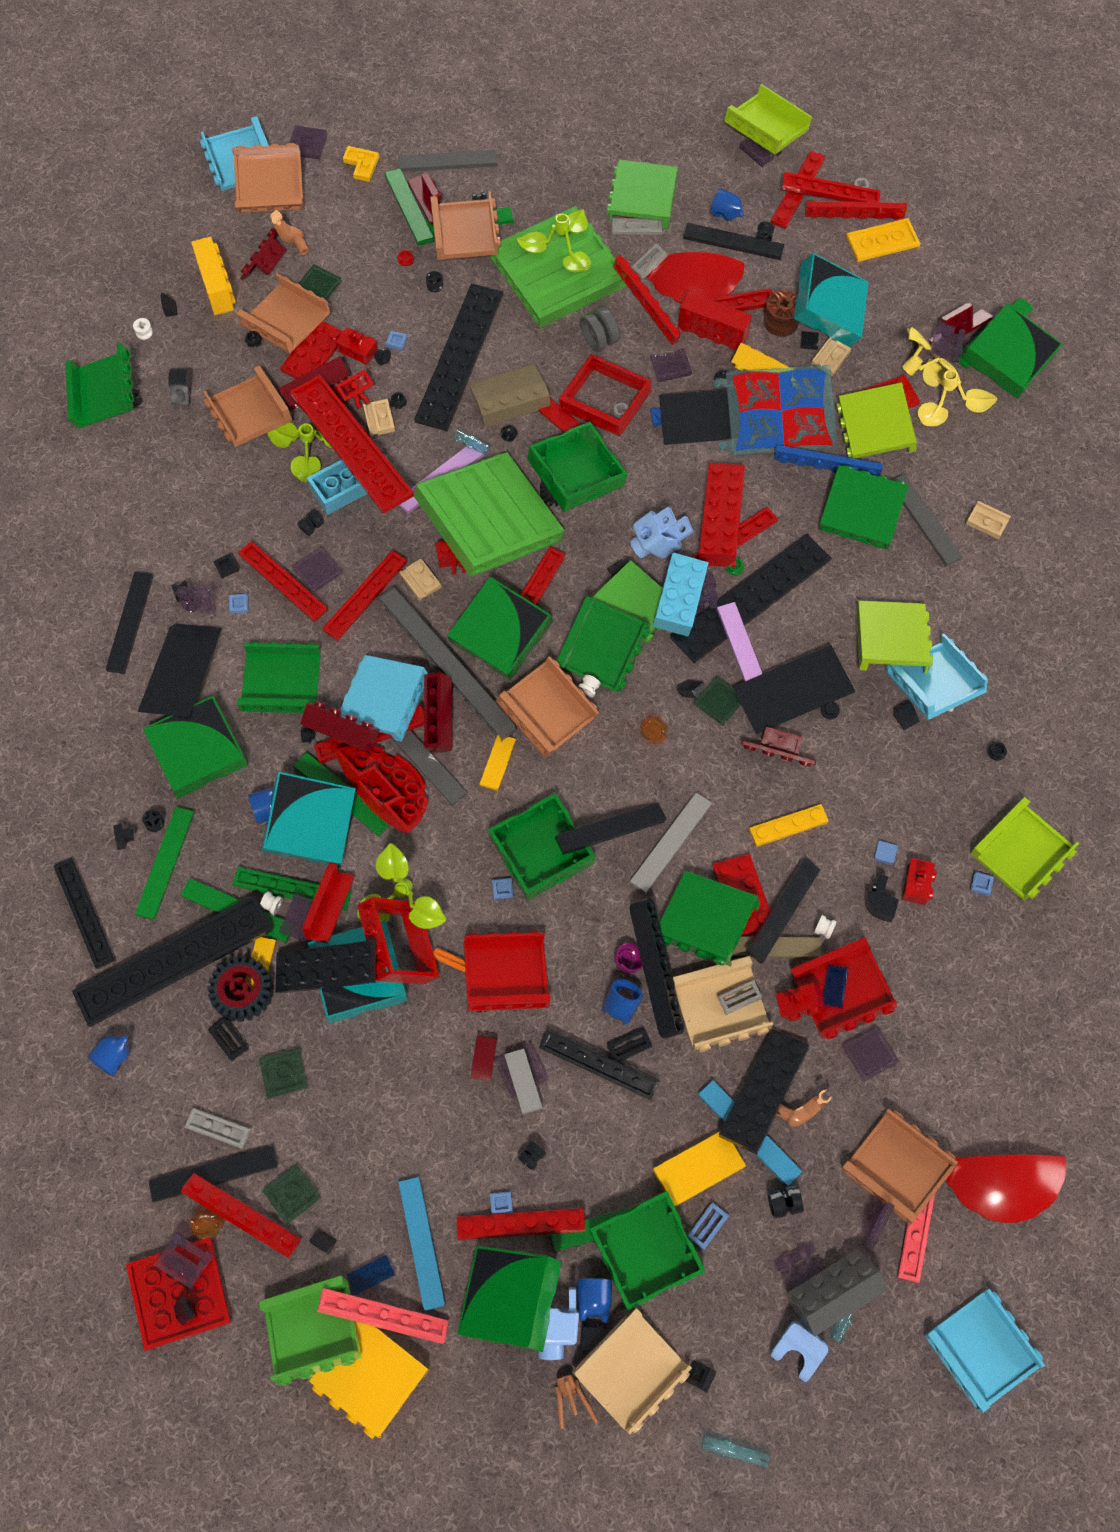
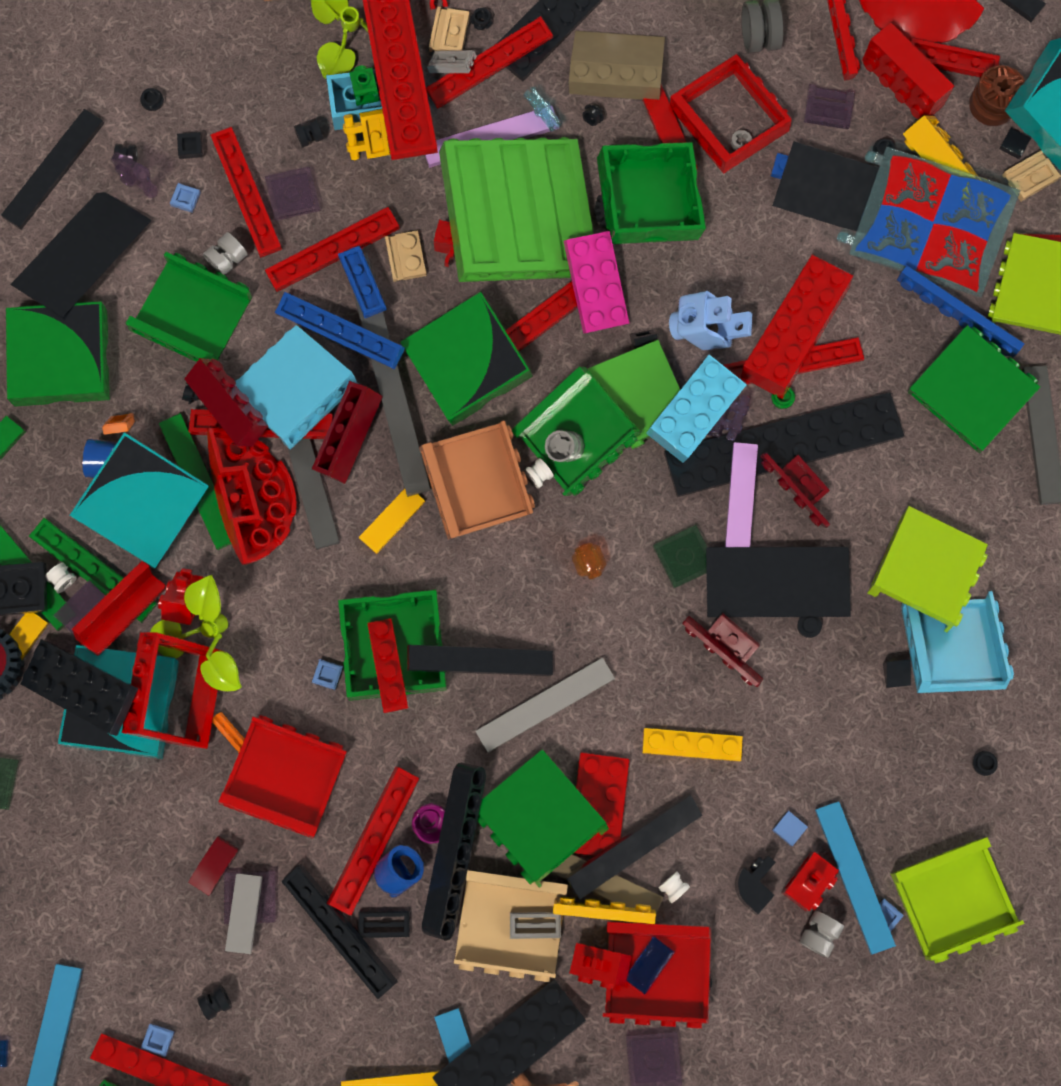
camera: 20 degrees right, 10 degrees up
(182, 546) = (151, 99): none -> black plate
(265, 775) = (118, 424): none -> orange tile
(288, 627) = (225, 254): none -> light grey wheel
(338, 472) = (364, 85): none -> green brick
(359, 504) = (374, 135): none -> yellow plate
(368, 878) = (173, 603): none -> red brick
(391, 435) = (451, 61): none -> light grey tile
(398, 645) = (340, 330): none -> blue plate
(399, 606) = (362, 282): none -> blue tile
(420, 424) = (490, 62): none -> red tile
(545, 860) = (387, 665): none -> red plate
(567, 540) = (596, 282): none -> dark pink plate
(593, 989) = (373, 841): none -> red plate
(600, 657) = (564, 446): none -> light grey wheel
(690, 689) = (657, 527): black slope -> none
(778, 617) = (802, 483): none -> dark red bracket
(792, 959) = (614, 911): none -> yellow plate
(944, 913) = (821, 934): none -> light grey wheel
(948, 865) = (855, 878): none -> dark azure tile

